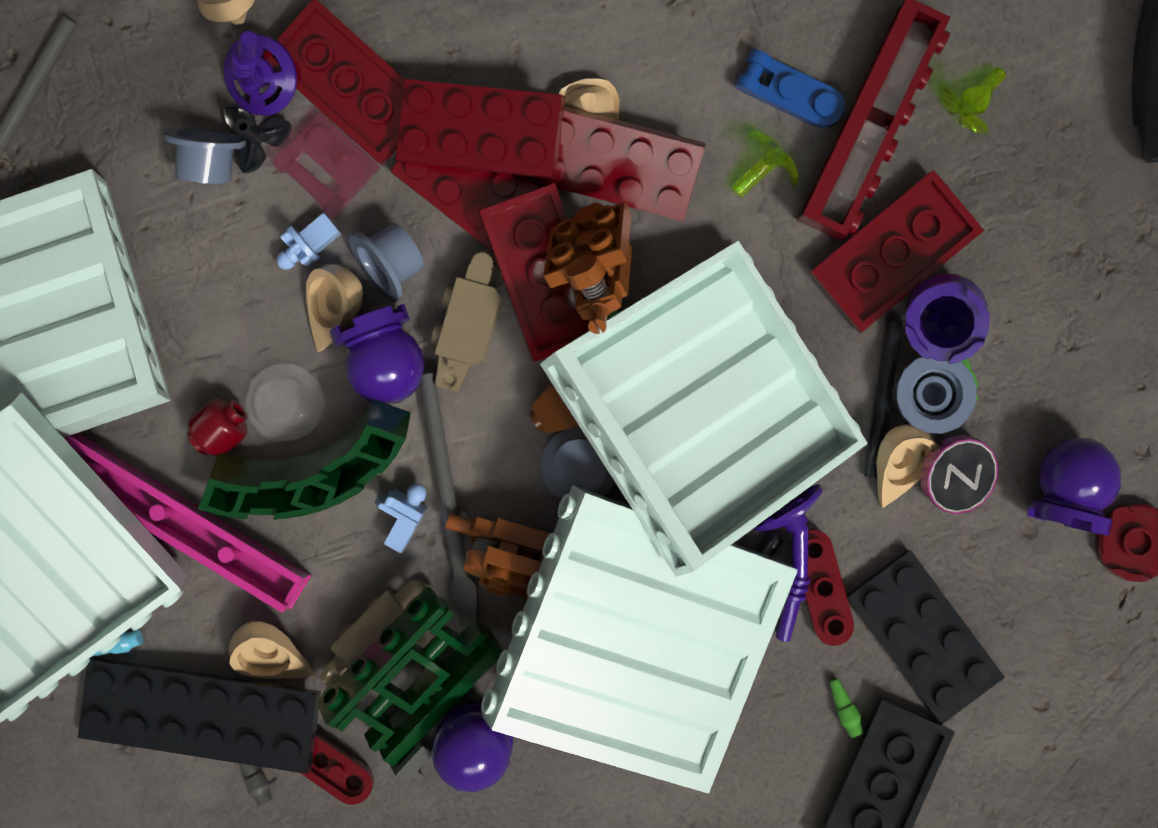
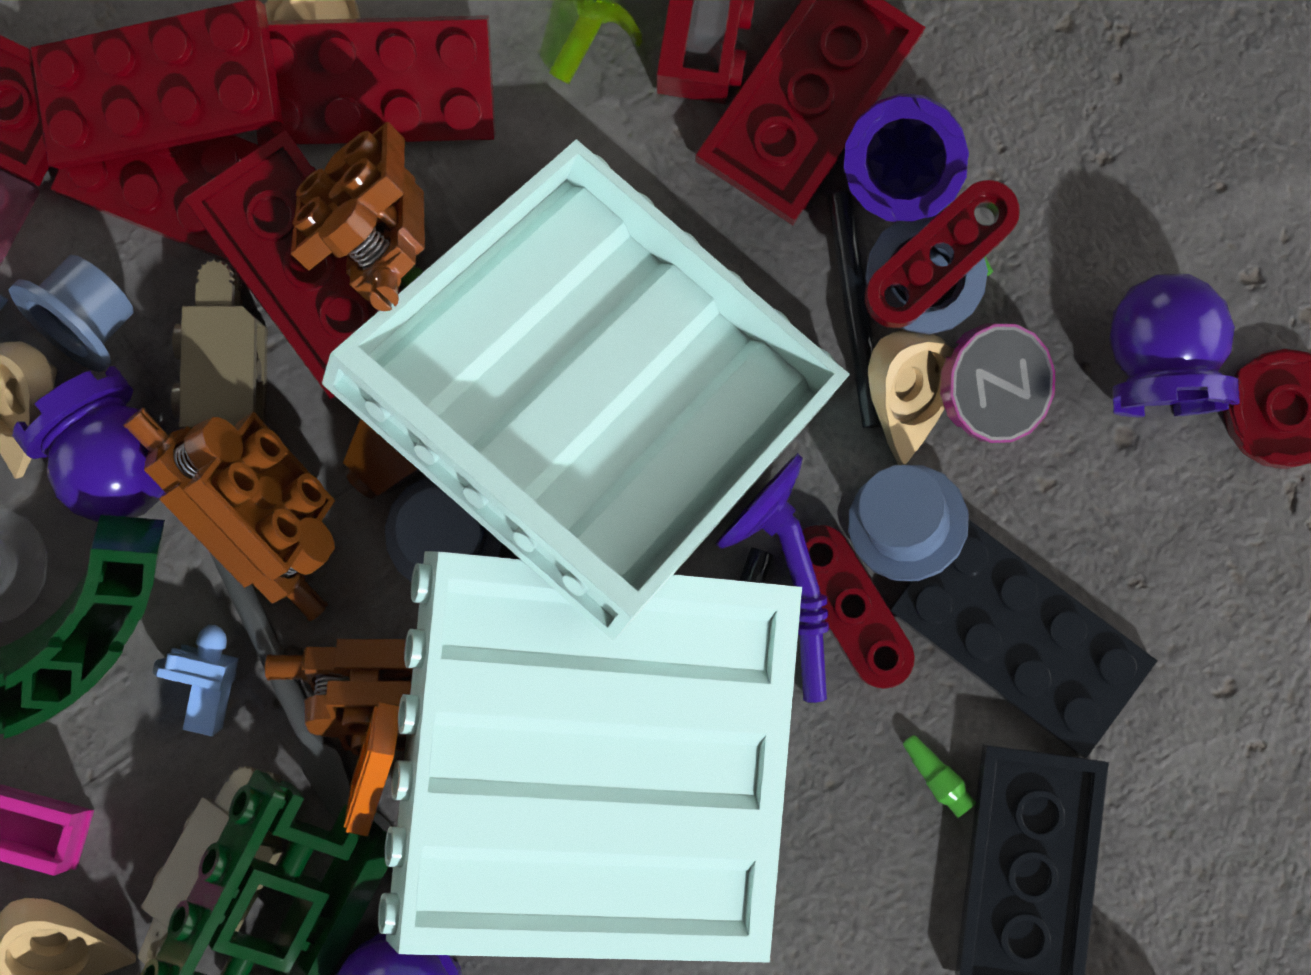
camera: 15 degrees left, 5 degrees down
(463, 415) = (243, 502): none -> dark orange piece
(501, 608) = (372, 769): none -> orange tile
(875, 545) = (908, 522): none -> sand blue piece
(967, 383) = (953, 231): none -> dark red plate

